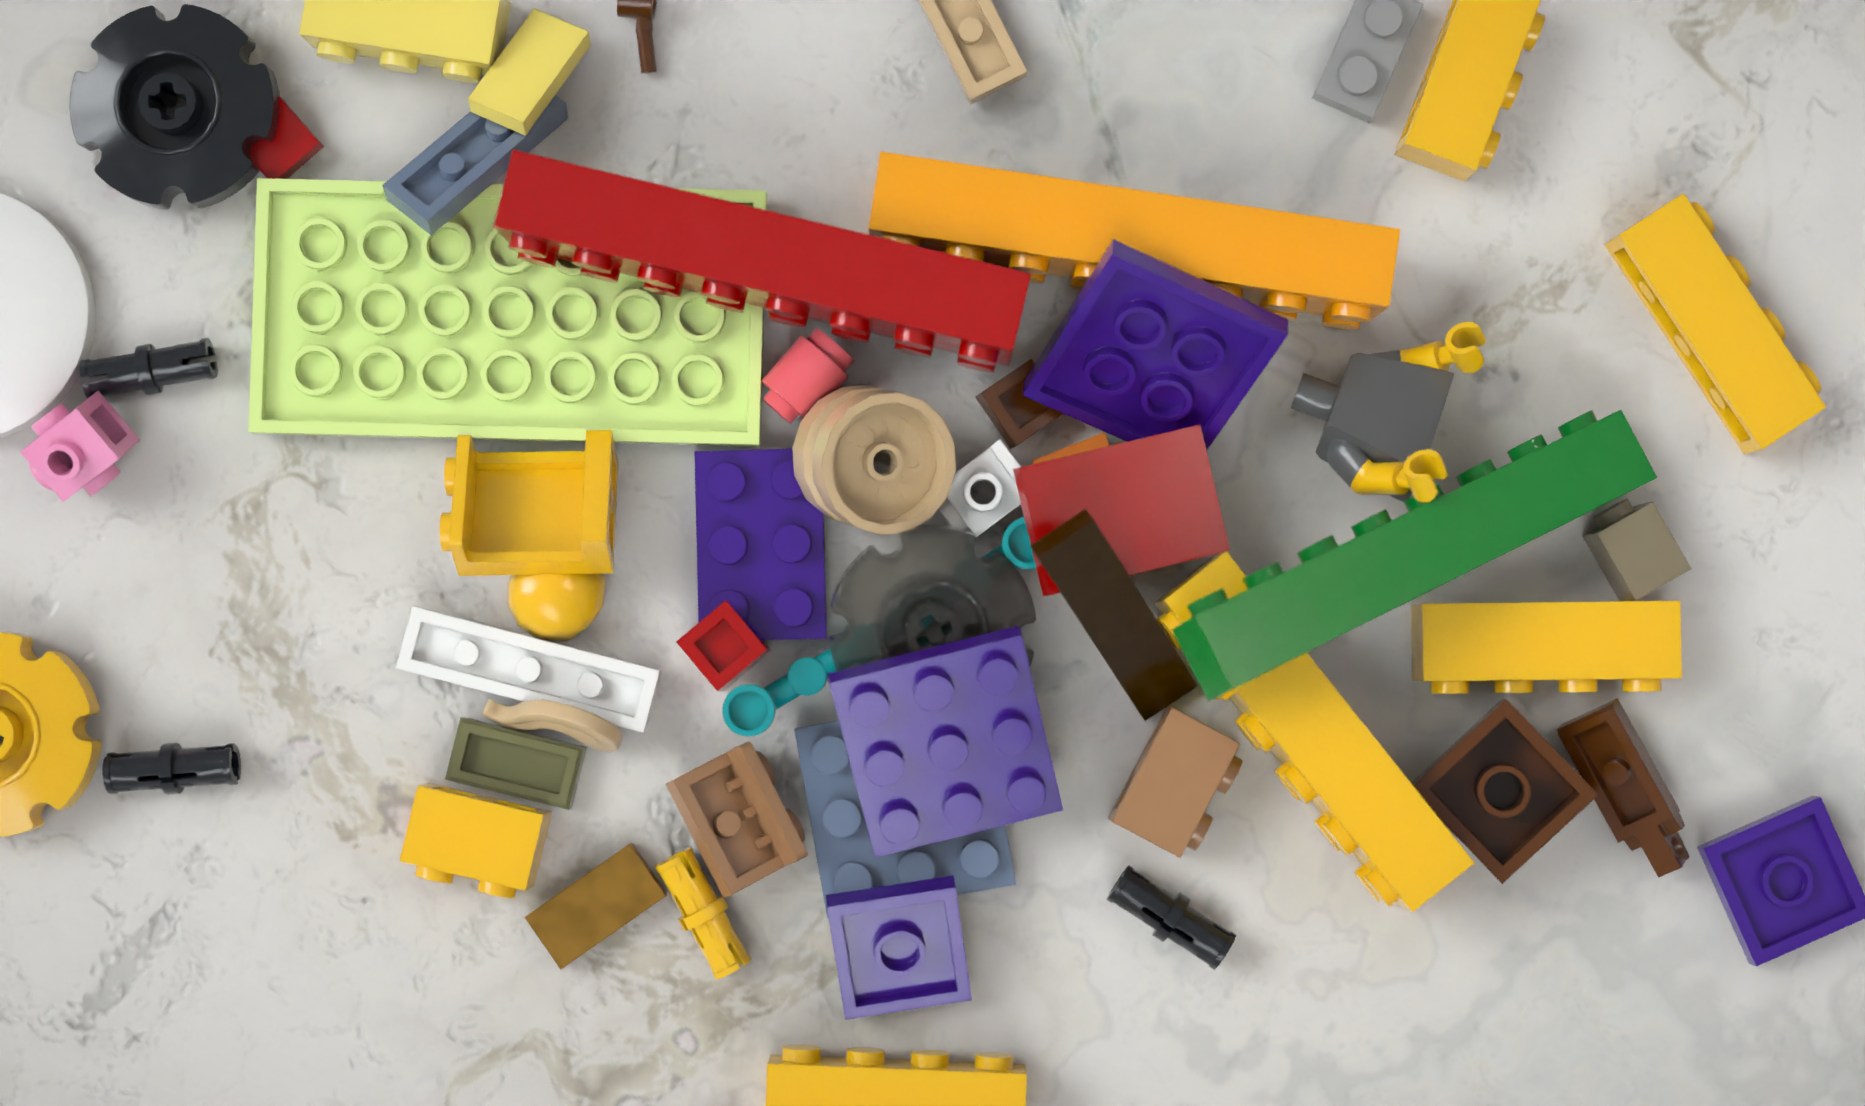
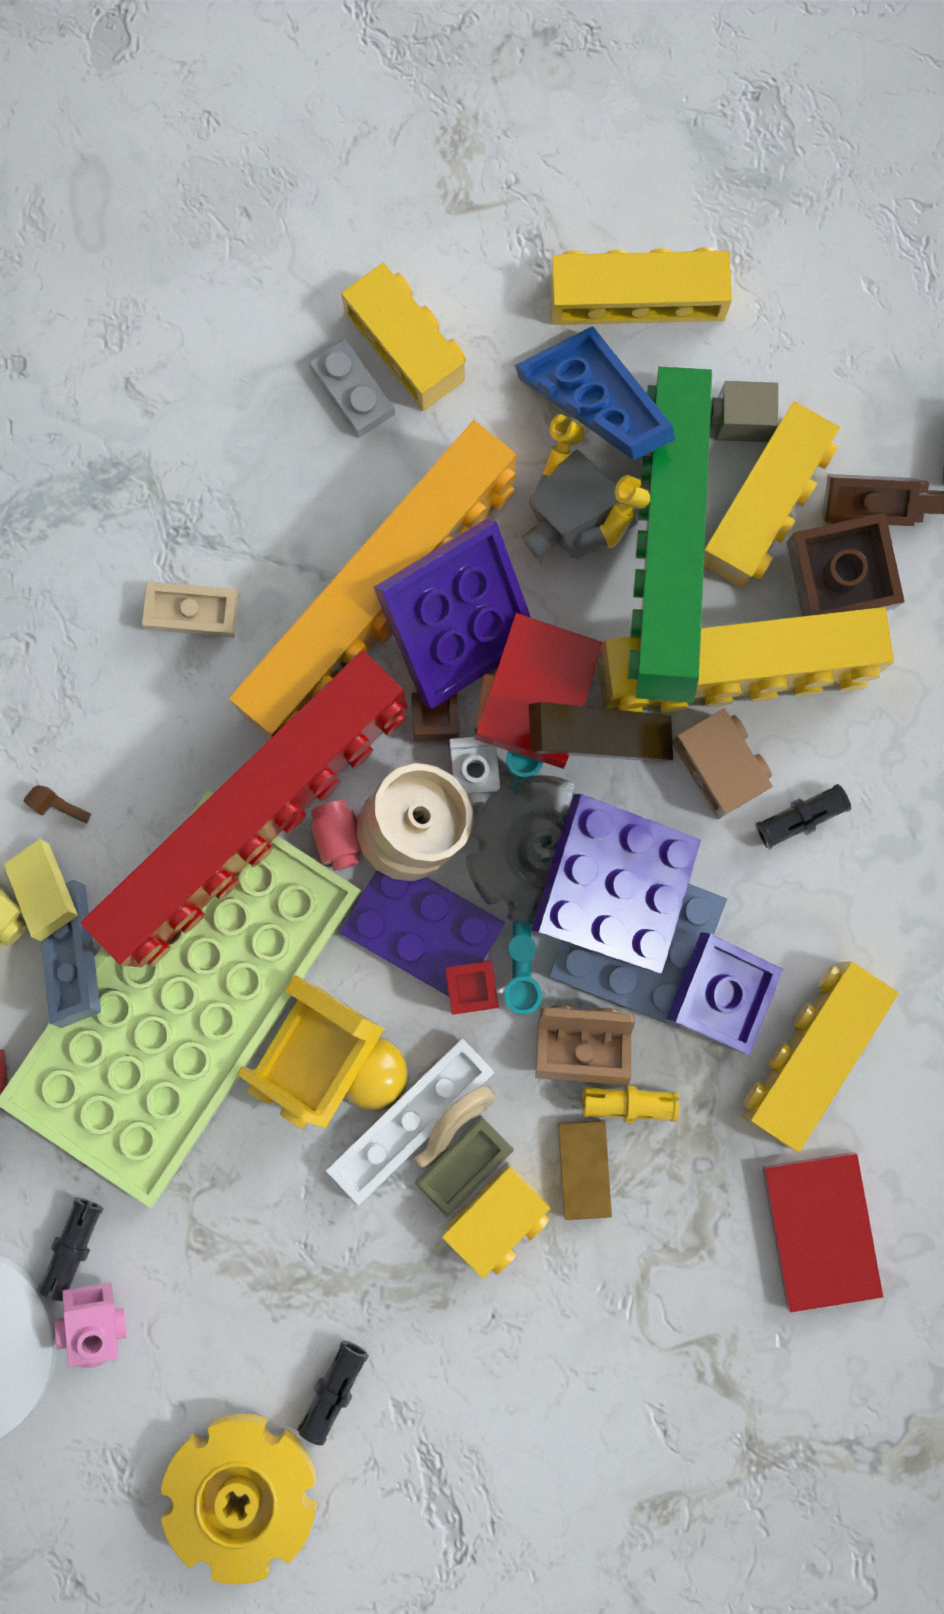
camera: 60 degrees left, 5 degrees down
(1539, 355) = (599, 392): none -> blue wing

